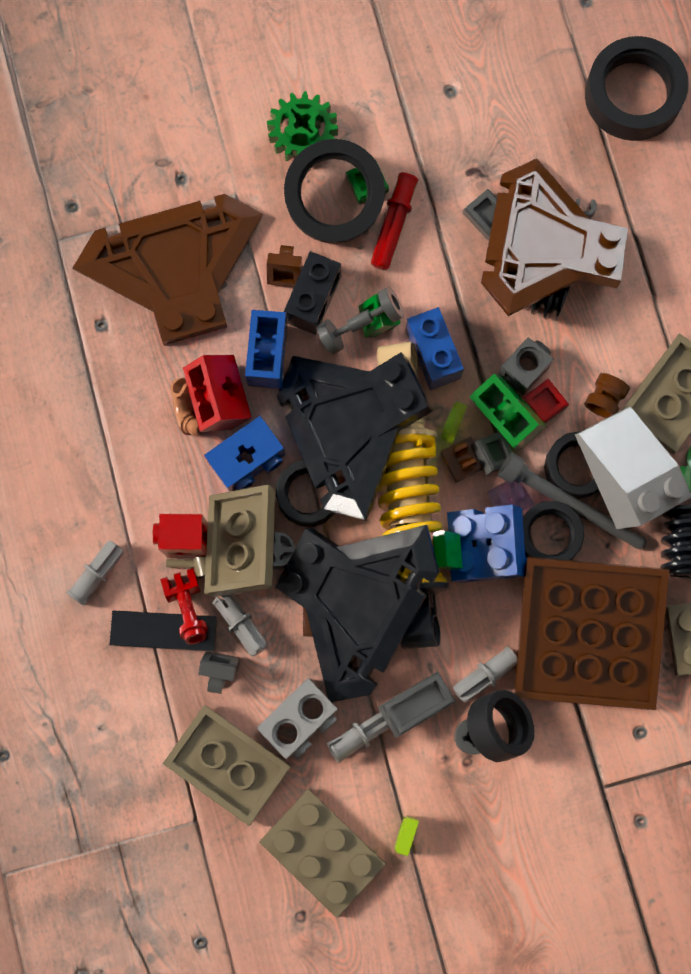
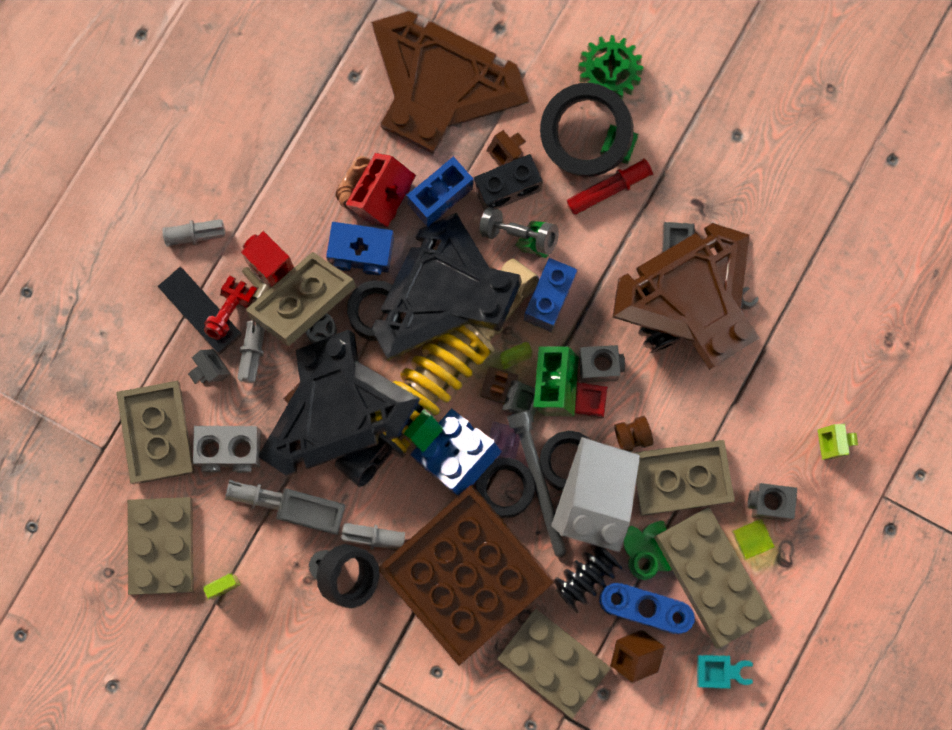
camera: 40 degrees right, 0 degrees up
(652, 54) = (883, 220): black tyre -> none

